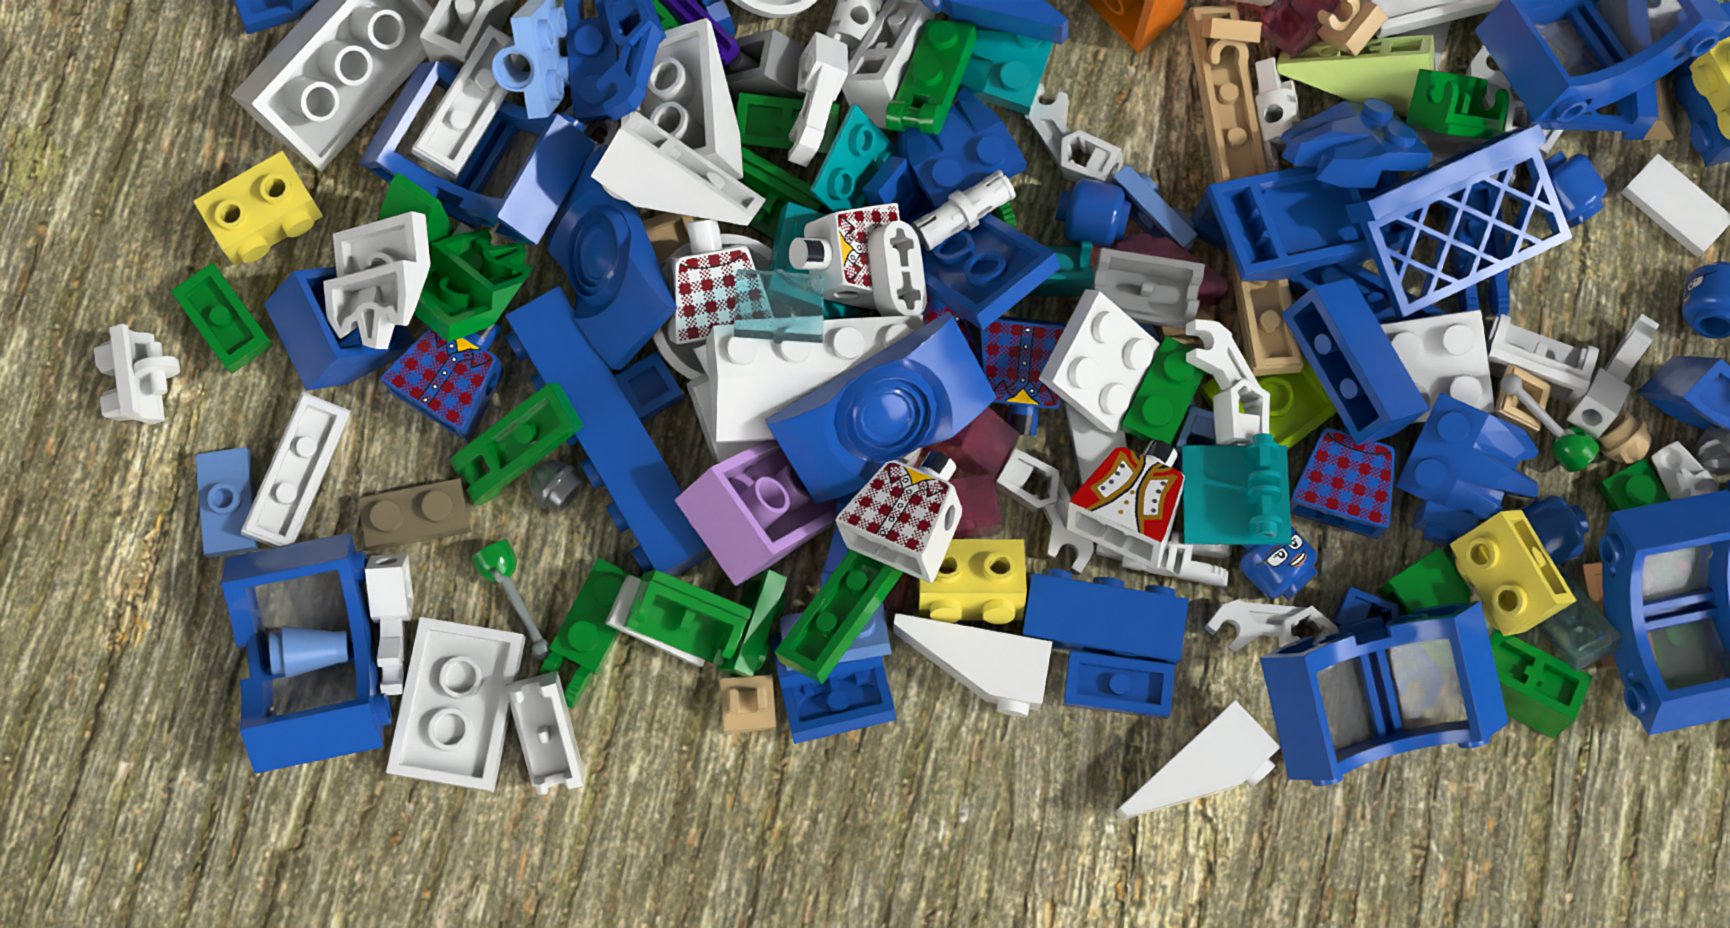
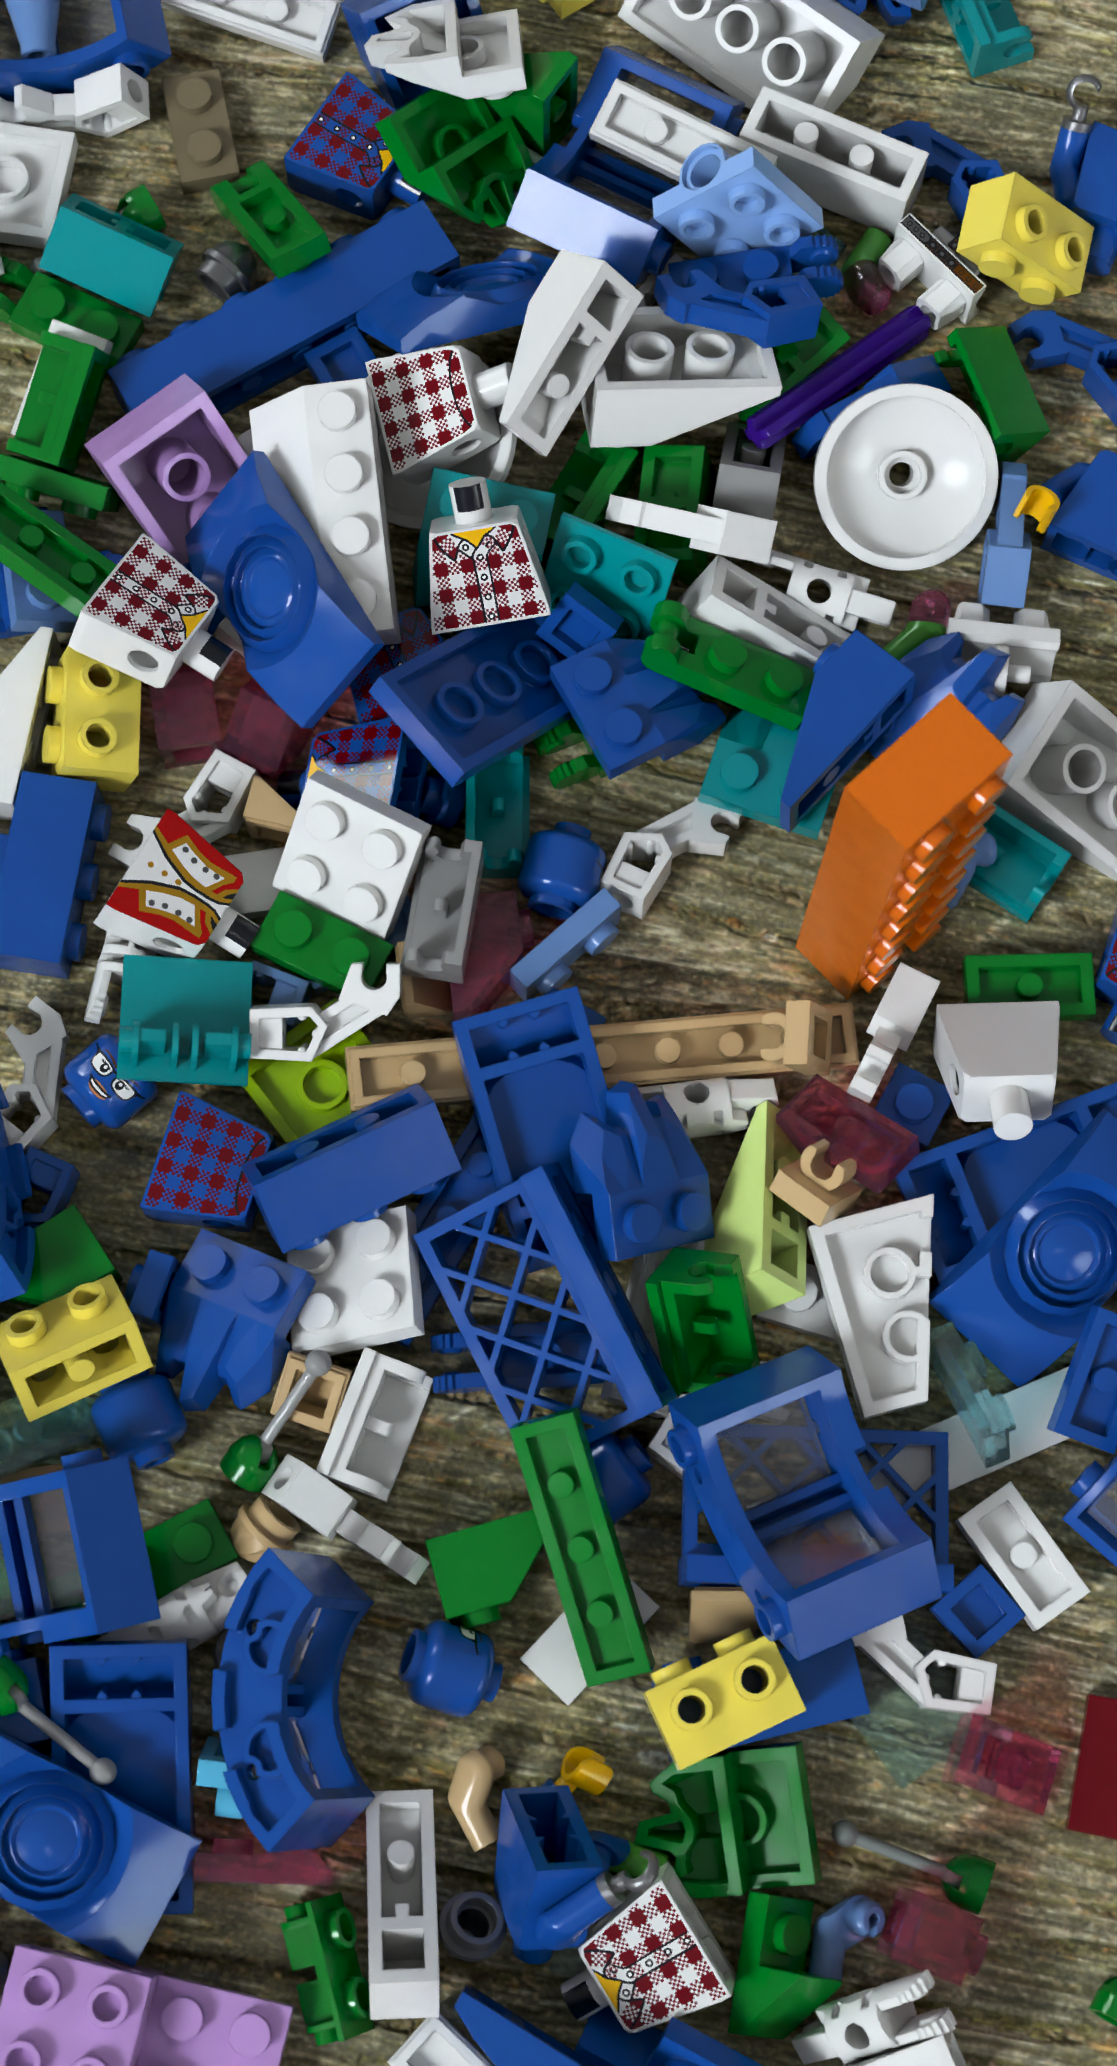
camera: 90 degrees right, 0 degrees up
(542, 578) = (110, 254): none -> teal hinge
(778, 306) = (395, 455): clear light blue piece -> none
(897, 270) = (457, 621): white beam -> none
(963, 209) = (542, 691): white pin -> none
(1035, 305) = (441, 802): none -> blue plate
(1049, 439) = (267, 813): none -> tan slope
(1634, 192) = (582, 1547): none -> green plate
(1636, 270) = (484, 1567): none -> green slope

